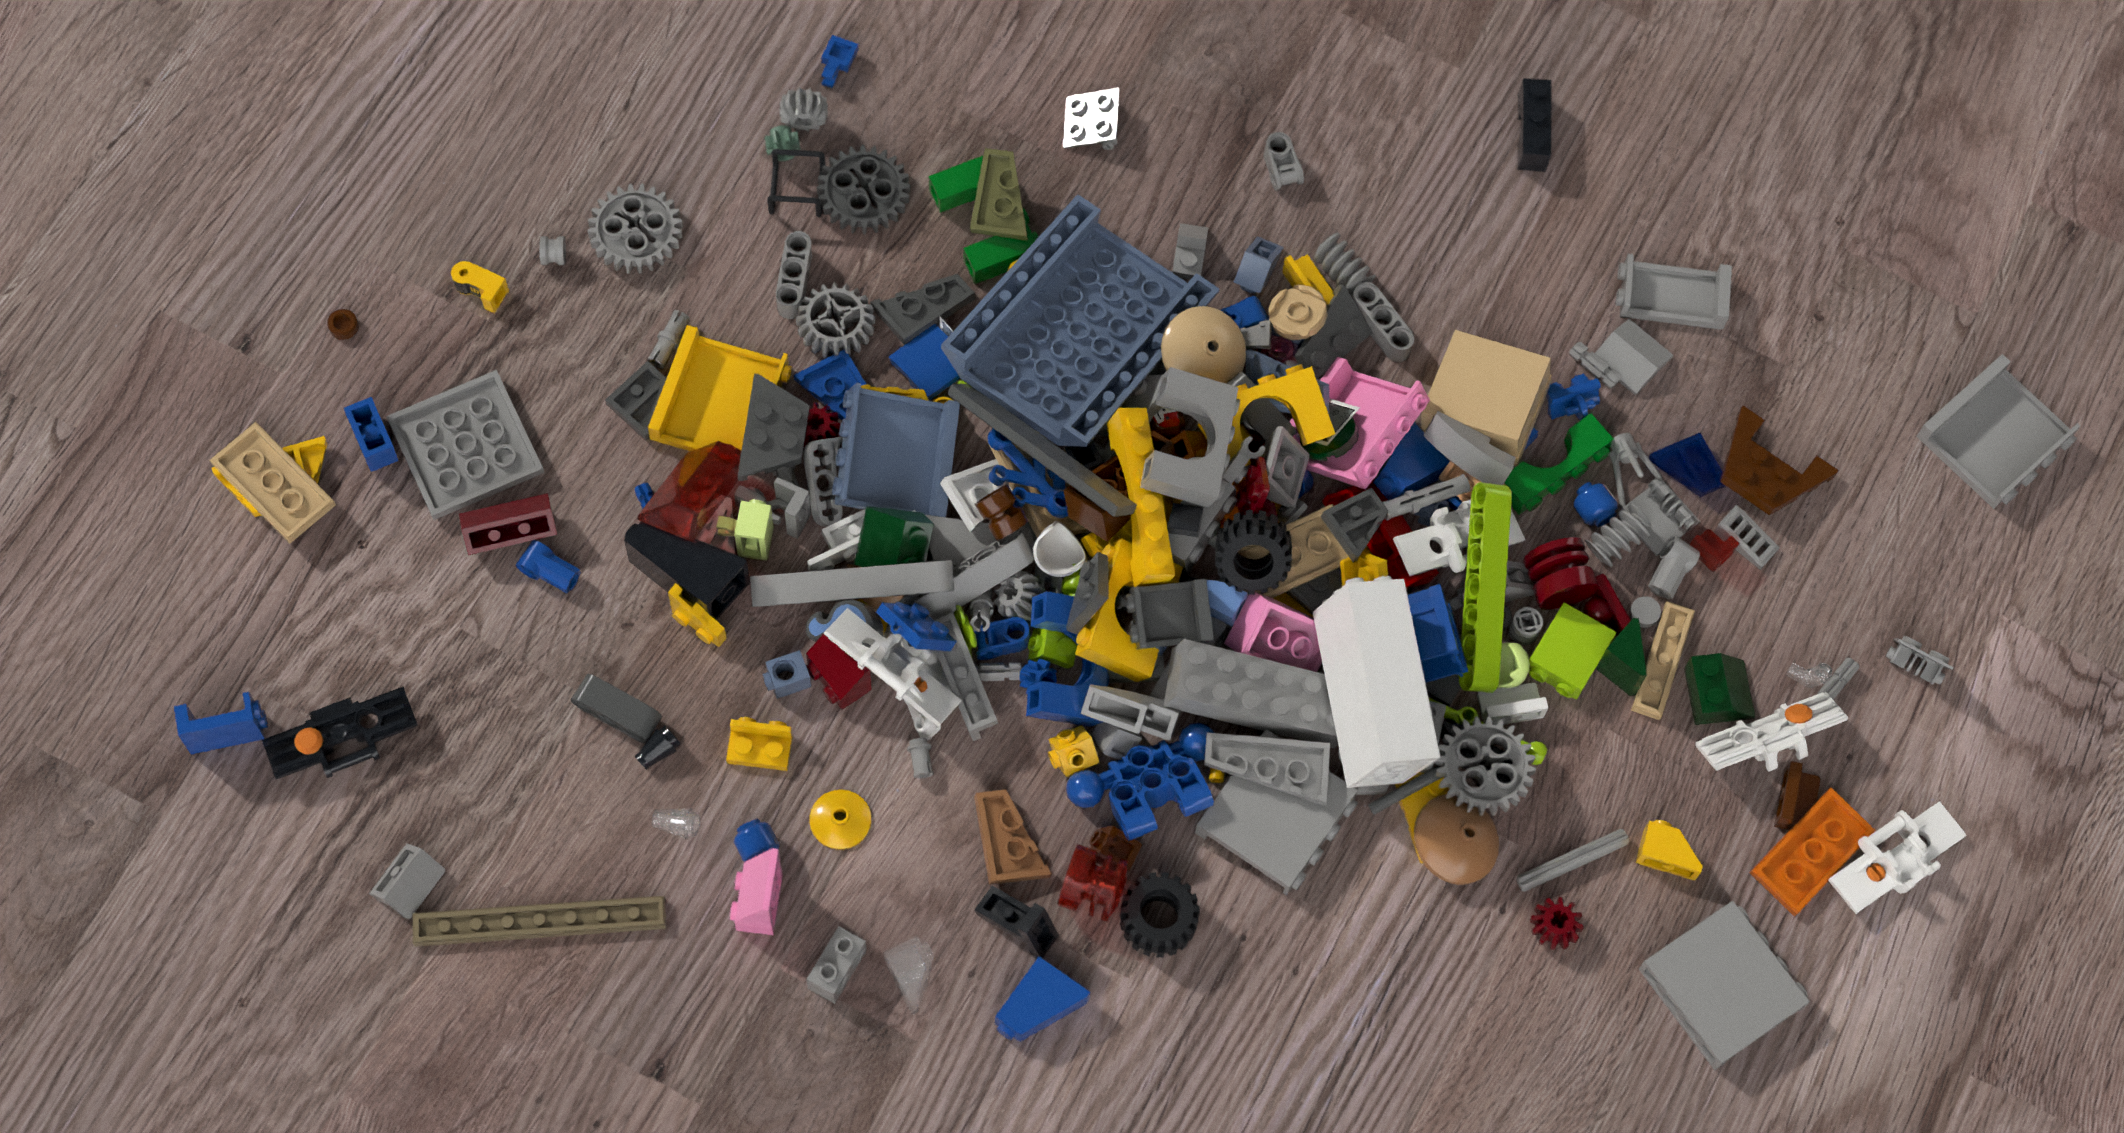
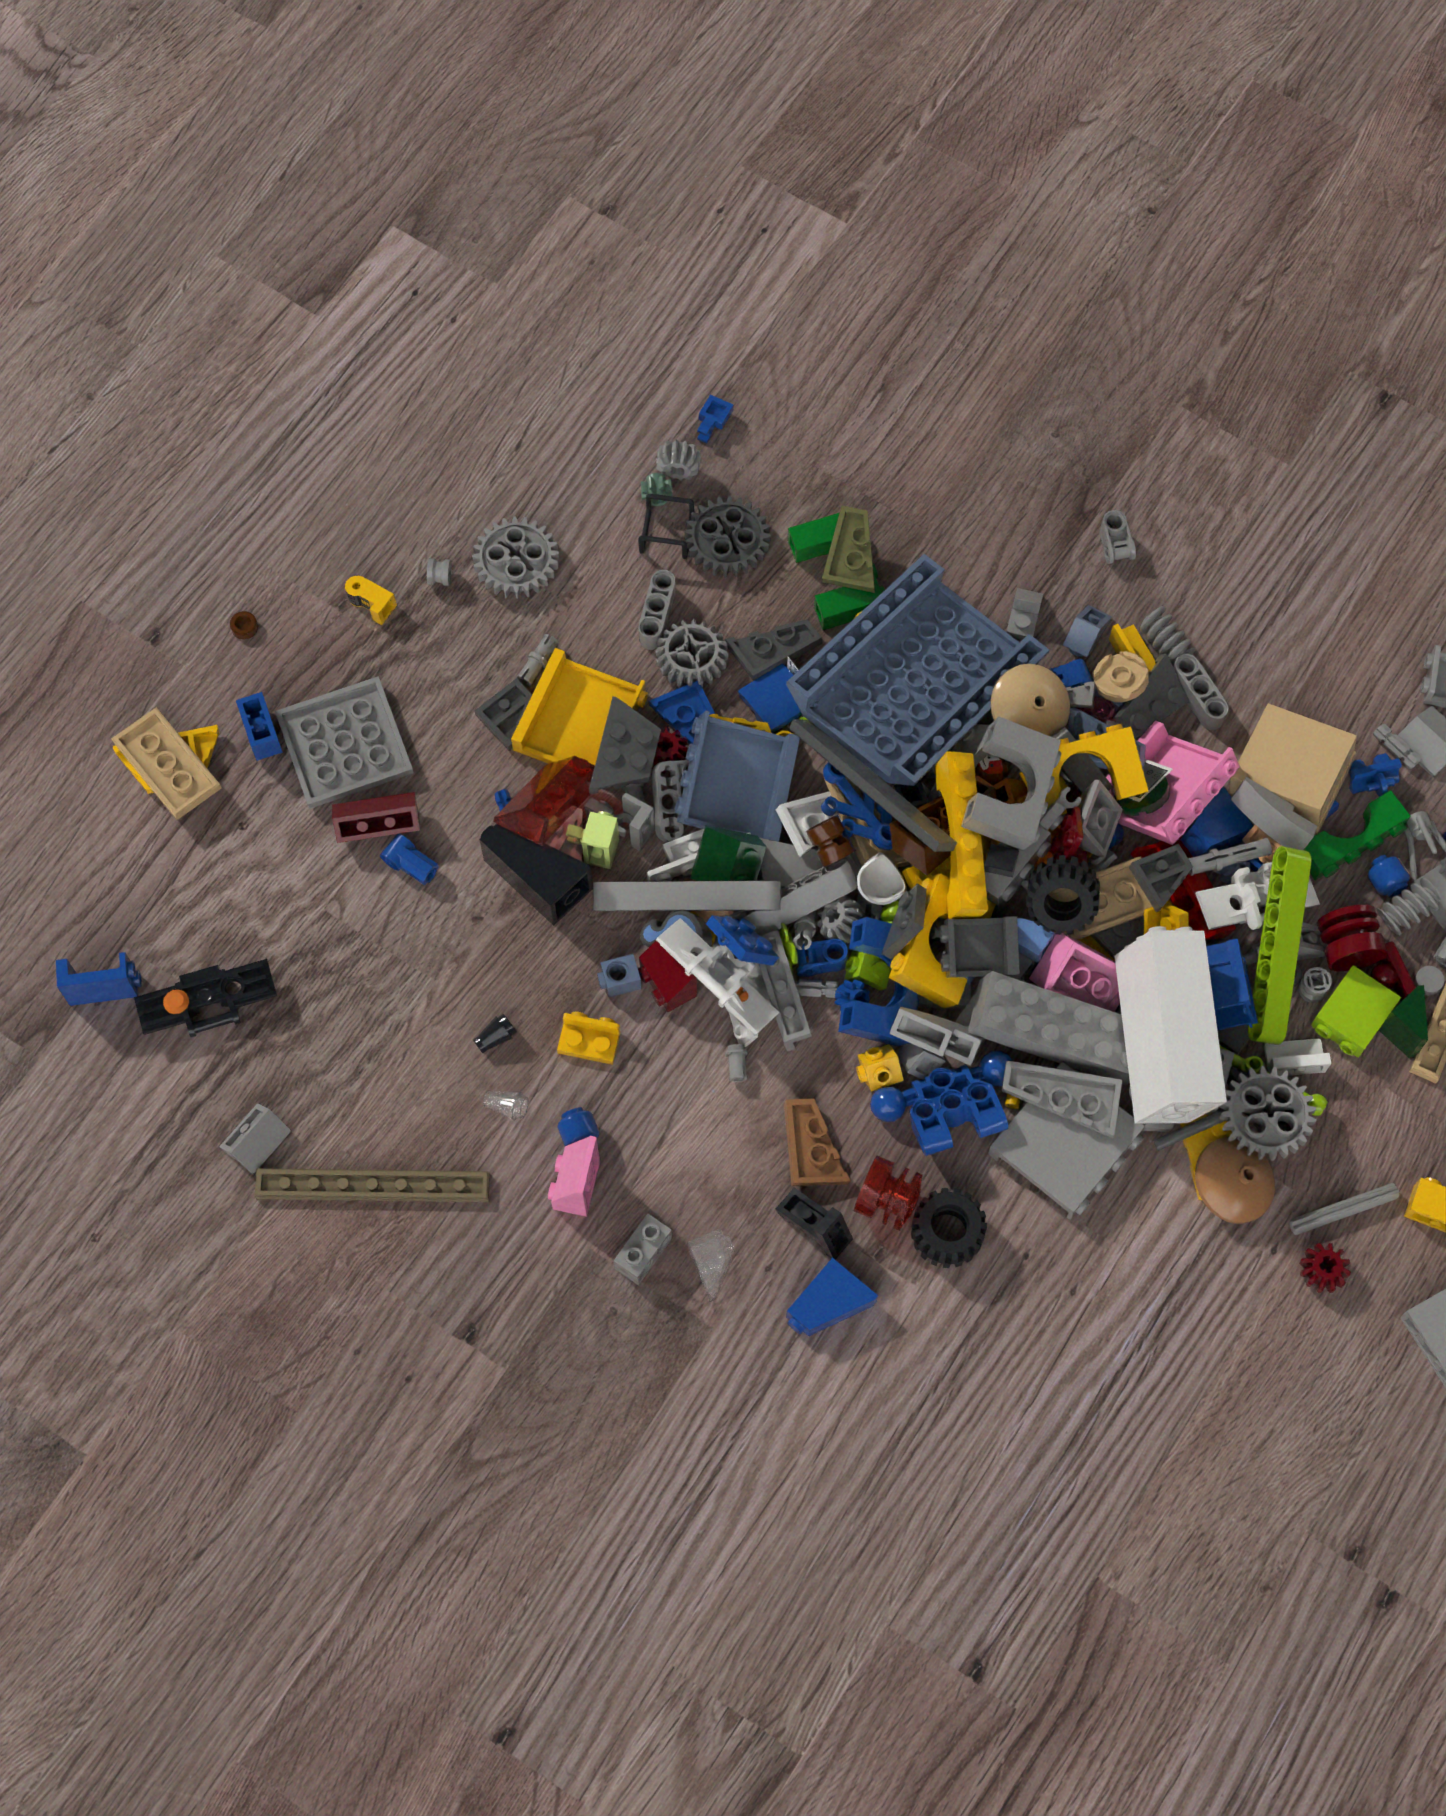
camera: 10 degrees right, 0 degrees up
(616, 708) = (460, 994): dark grey beam -> none
(694, 615) = (540, 915): yellow wing -> none
(842, 833) = (658, 1127): yellow dish -> none
(1092, 119) = (943, 487): hinge -> none
(1113, 842) = (910, 1155): reddish brown bracket -> none
(1513, 665) = (1301, 1020): yellowish green hair -> none
(1535, 118) = (1356, 509): black arch -> none

